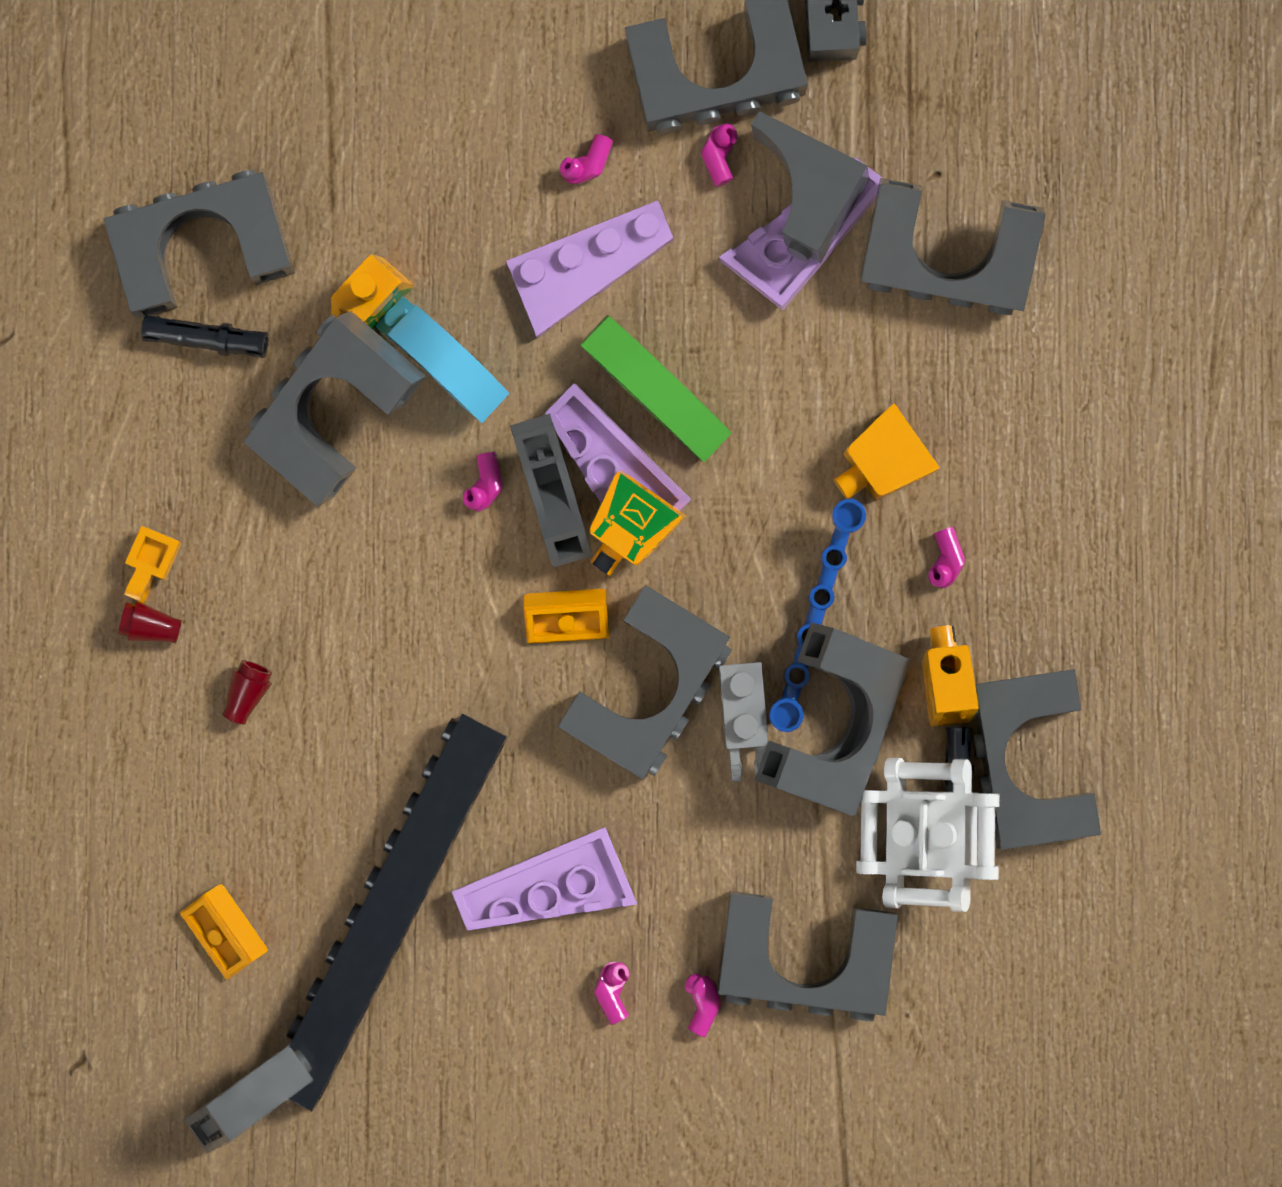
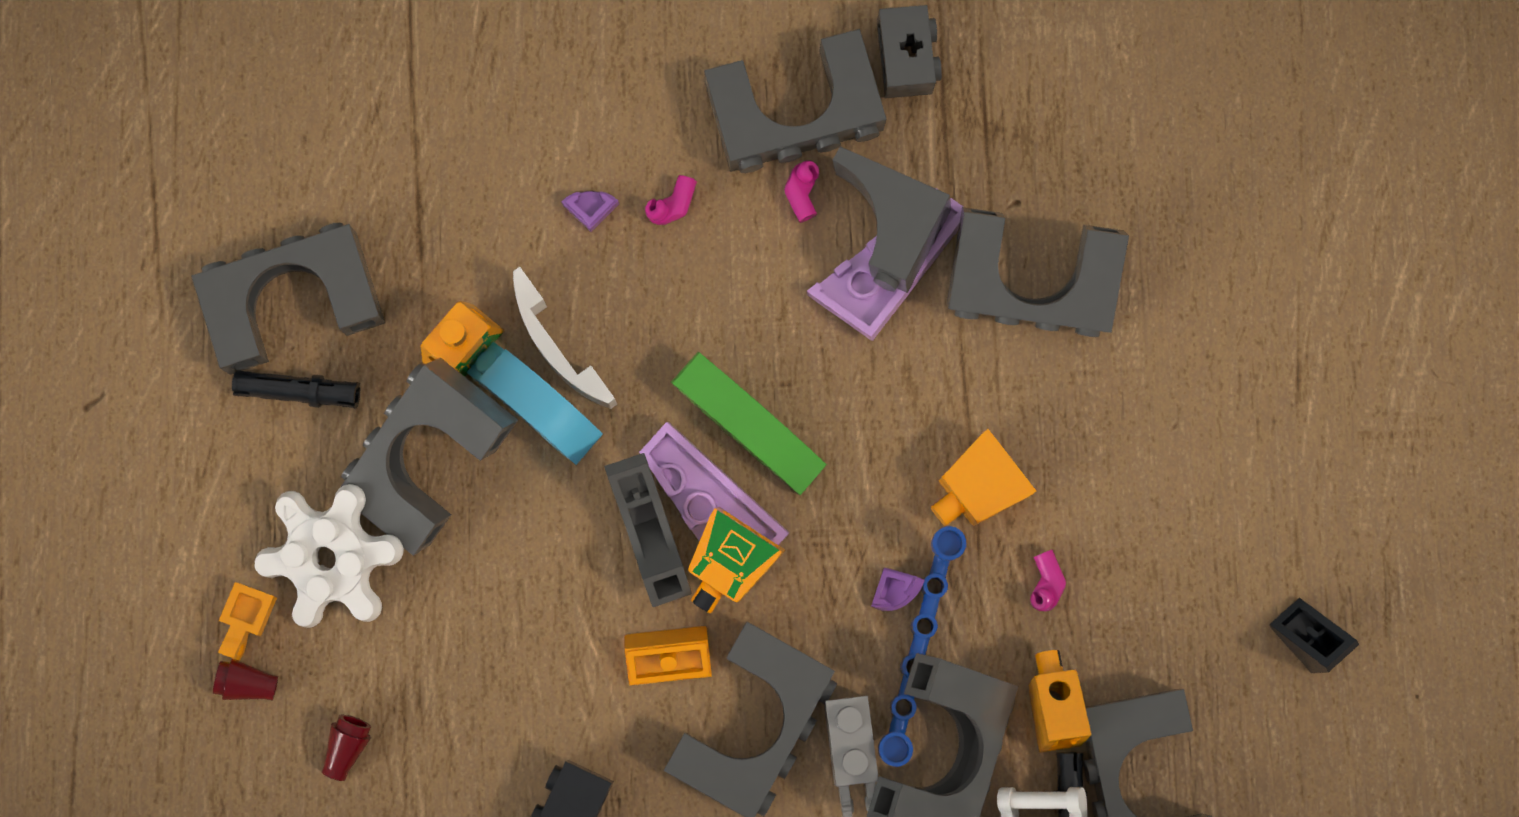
camera: 10 degrees left, 5 degrees down
(259, 498) = (354, 554): none -> white plate
(487, 486) = (583, 528): dark pink arm -> none
(494, 341) = (529, 305): none -> white slope
(504, 163) = (590, 207): none -> medium lavender tile
(578, 267) = (665, 307): lavender wing -> none
(795, 560) = (896, 590): none -> medium lavender tile
(1207, 623) = (1313, 637): none -> black slope

